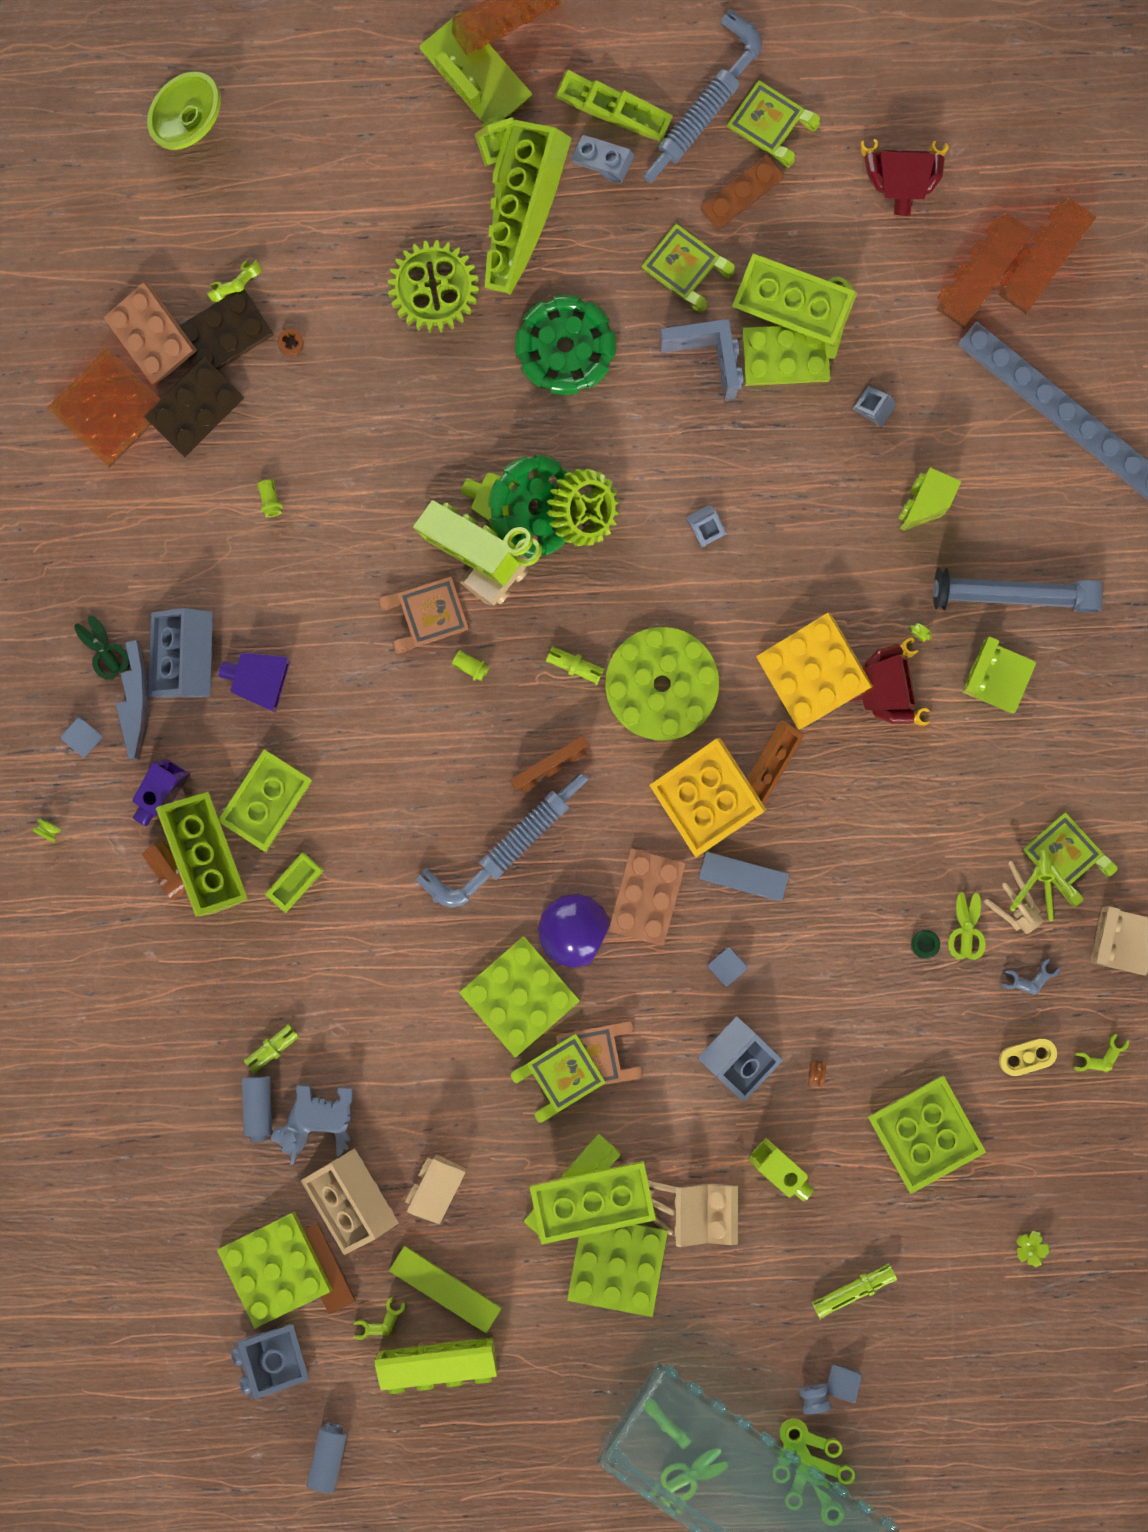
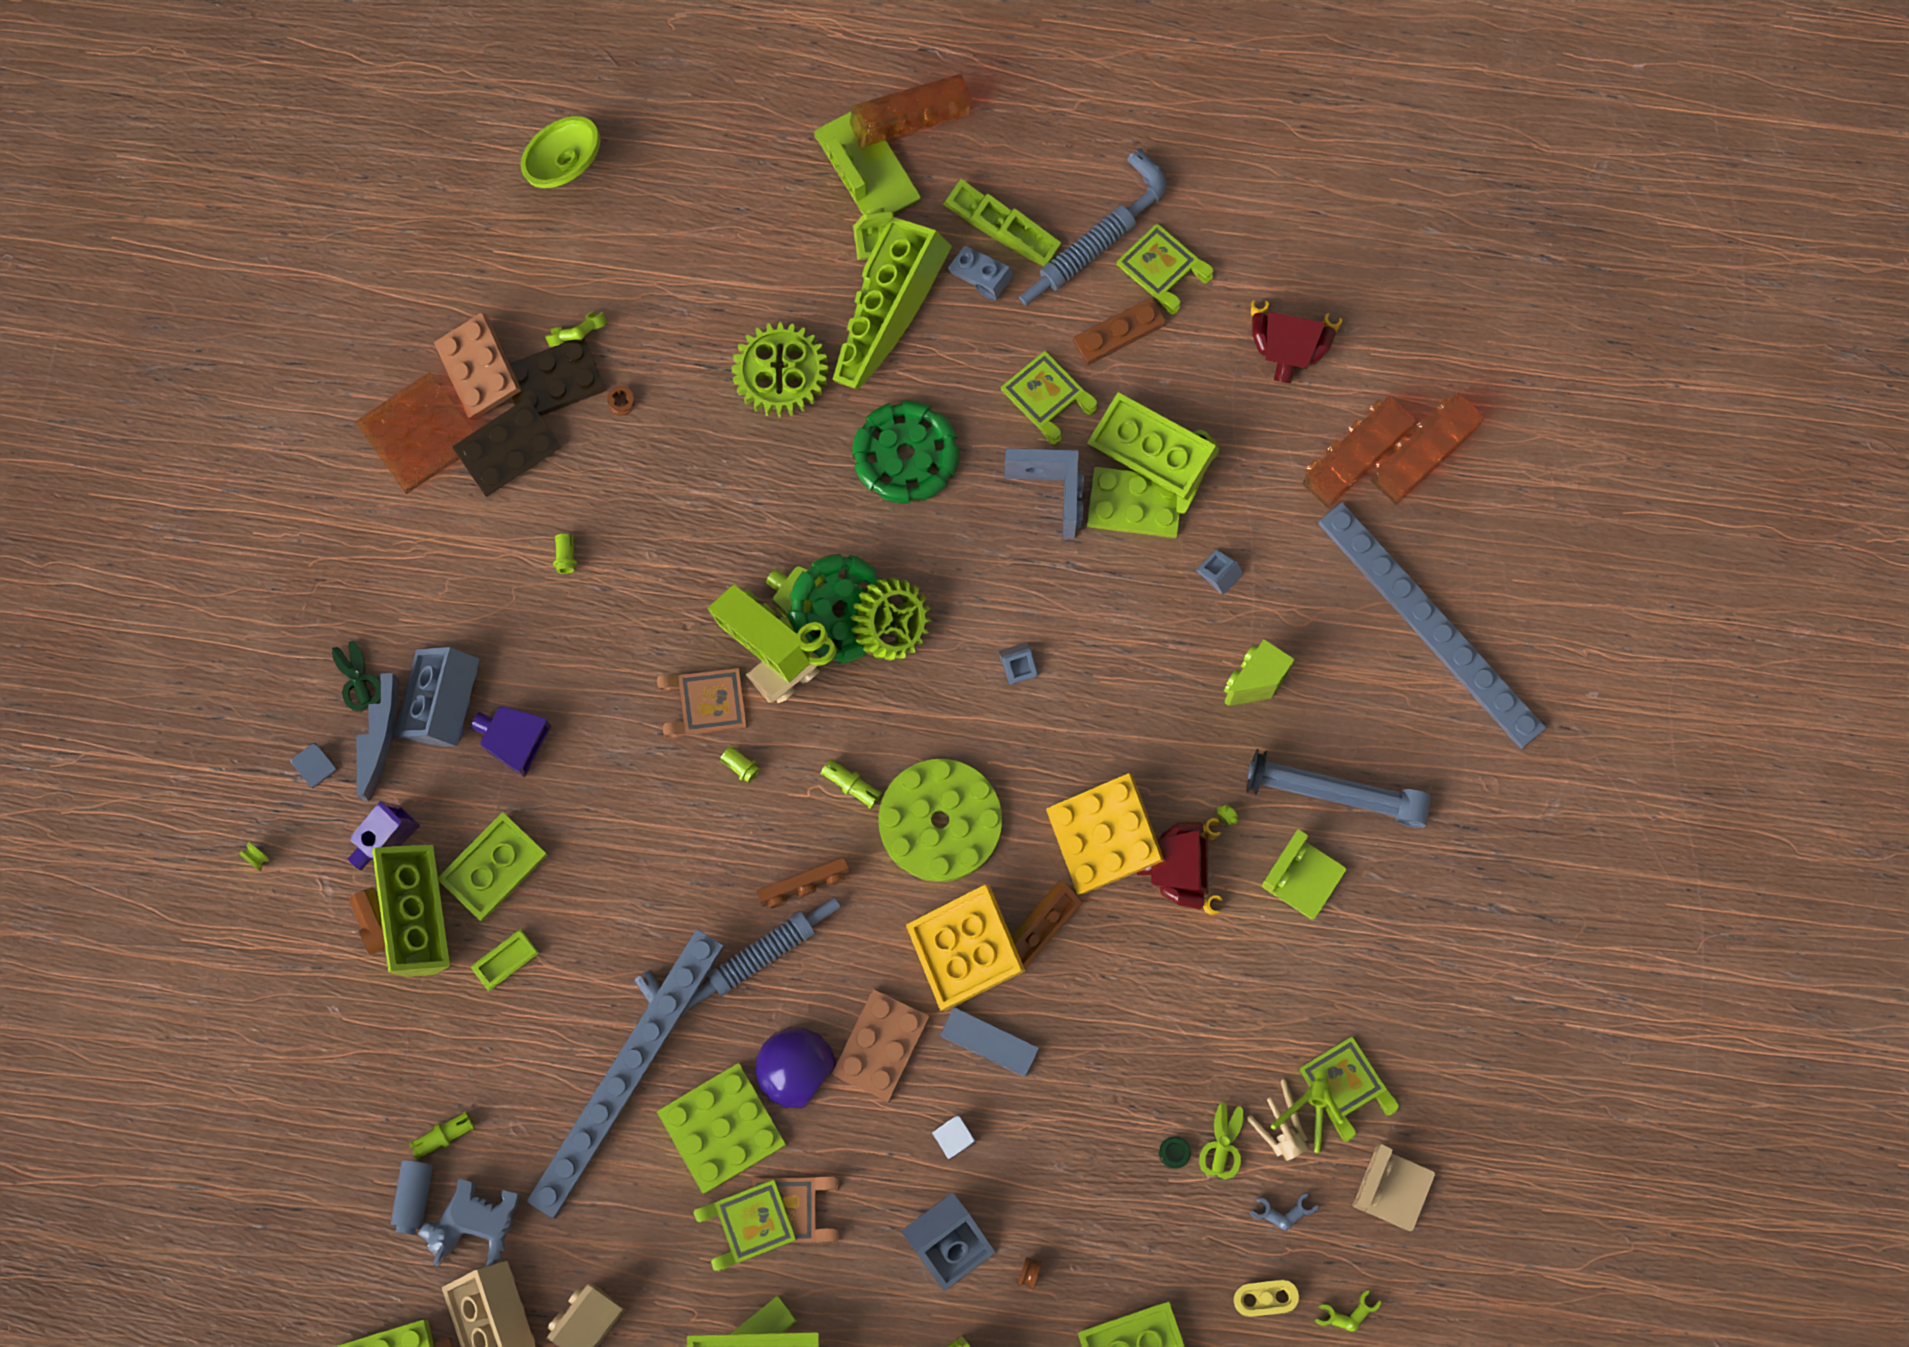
camera: 10 degrees right, 10 degrees down
(425, 964) = (625, 1074): none -> sand blue plate

